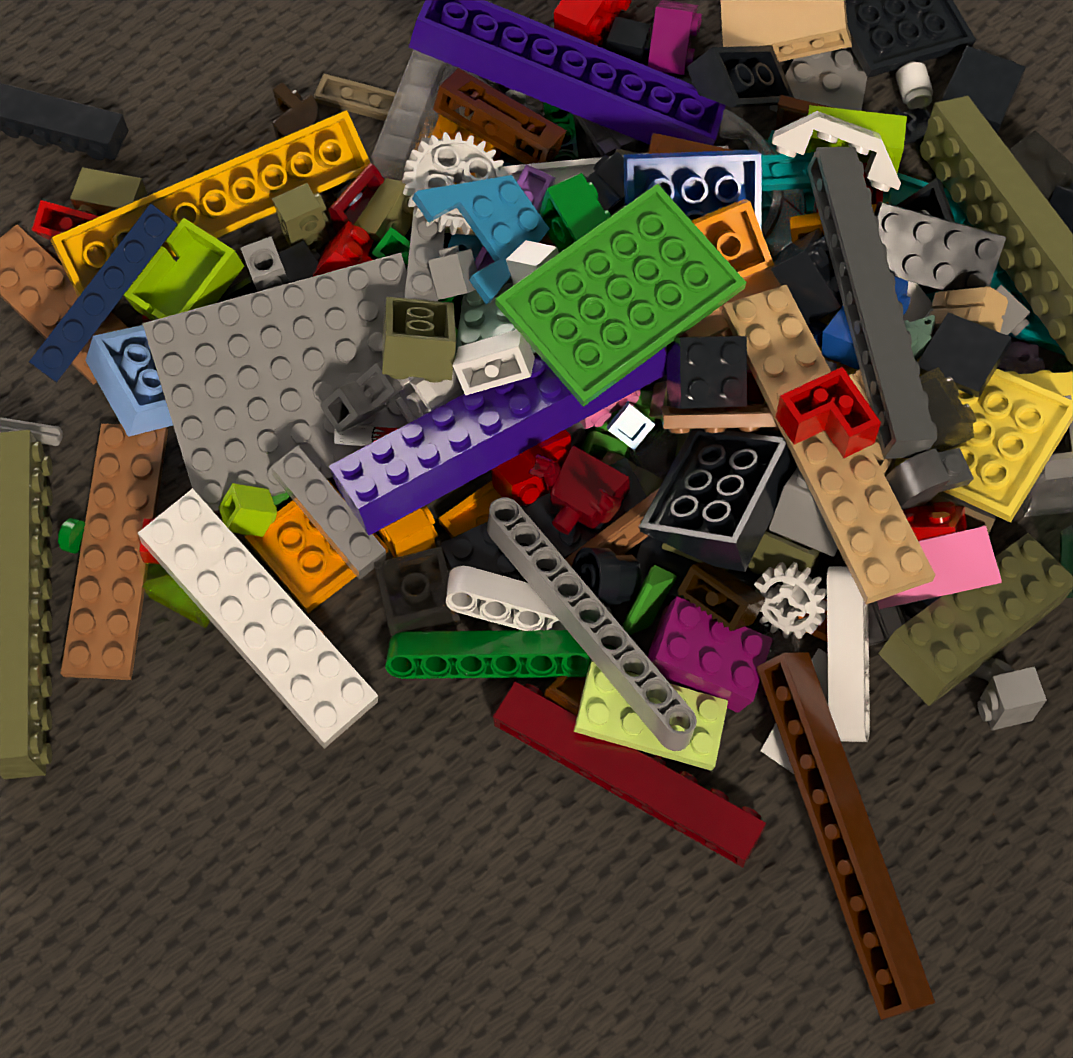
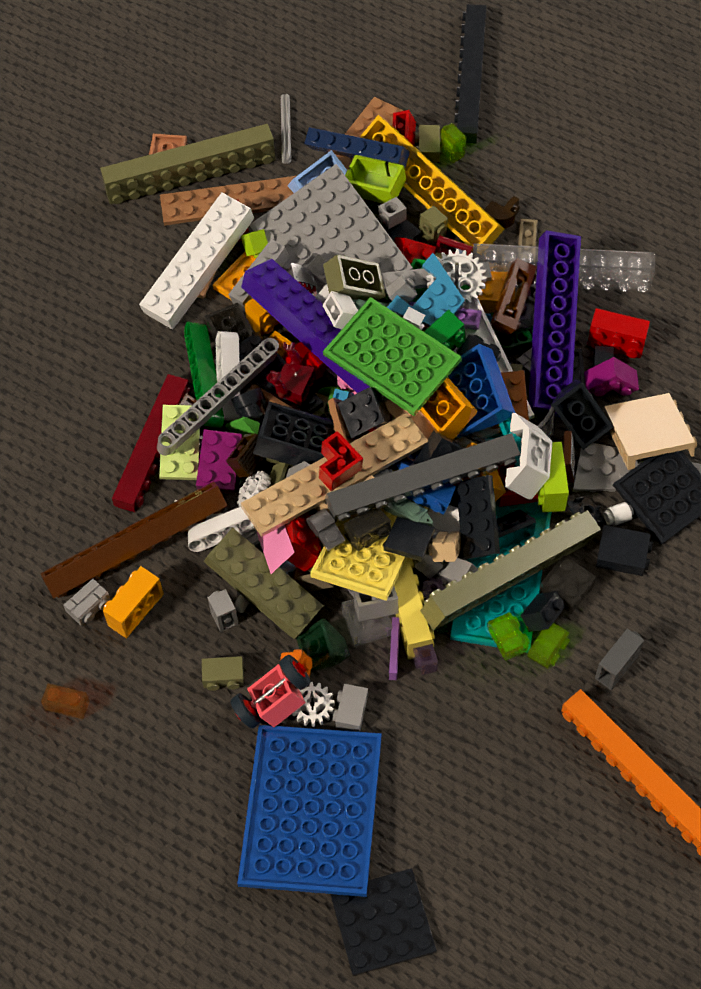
camera: 75 degrees right, 5 degrees down
(71, 535) = (231, 178): green tile -> none
(128, 152) = (452, 142): none -> clear neon green brick
(949, 941) = (87, 602): none -> light grey brick
(972, 852) = (133, 601): none -> light orange brick

